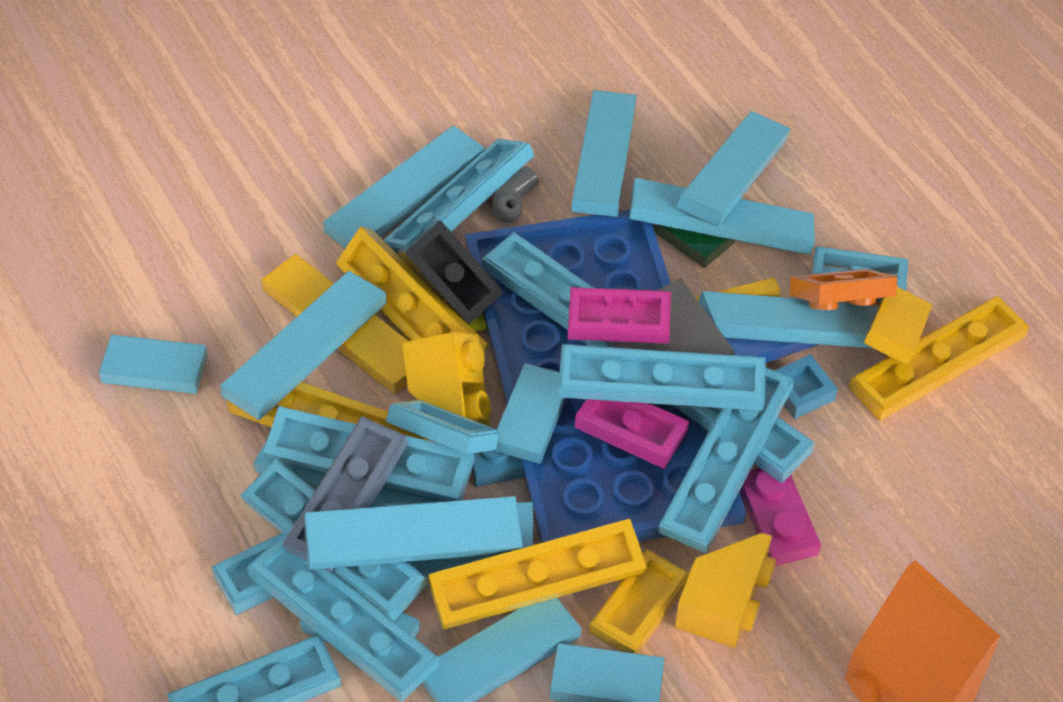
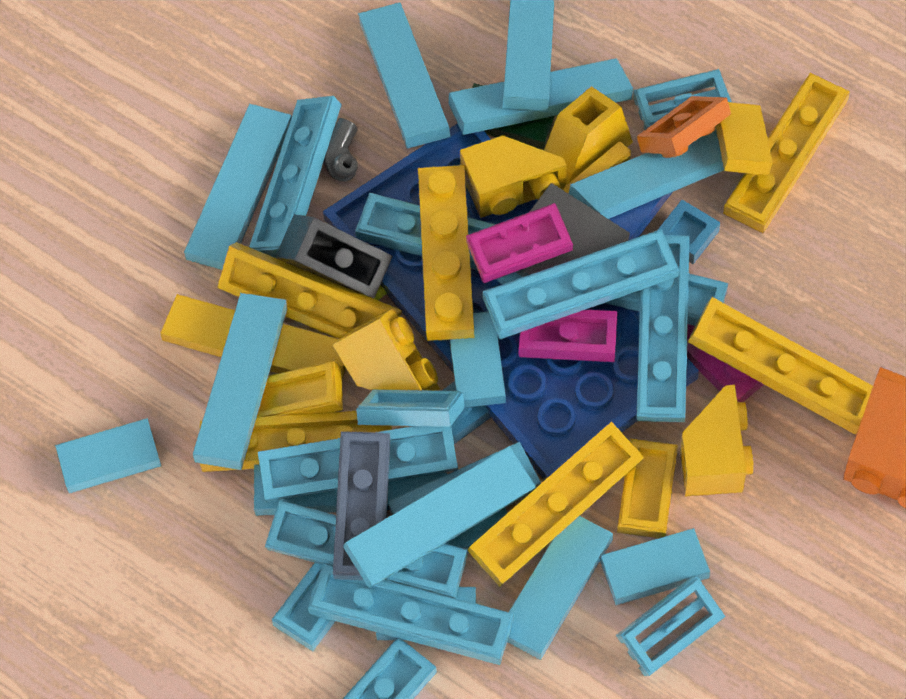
camera: 20 degrees left, 10 degrees up
(358, 377) = (303, 391): none -> yellow tile
(545, 316) = (445, 253): none -> yellow plate
(652, 258) = (508, 174): none -> yellow slope
(743, 257) = (587, 131): none -> yellow slope
(824, 531) = (781, 364): none -> yellow plate

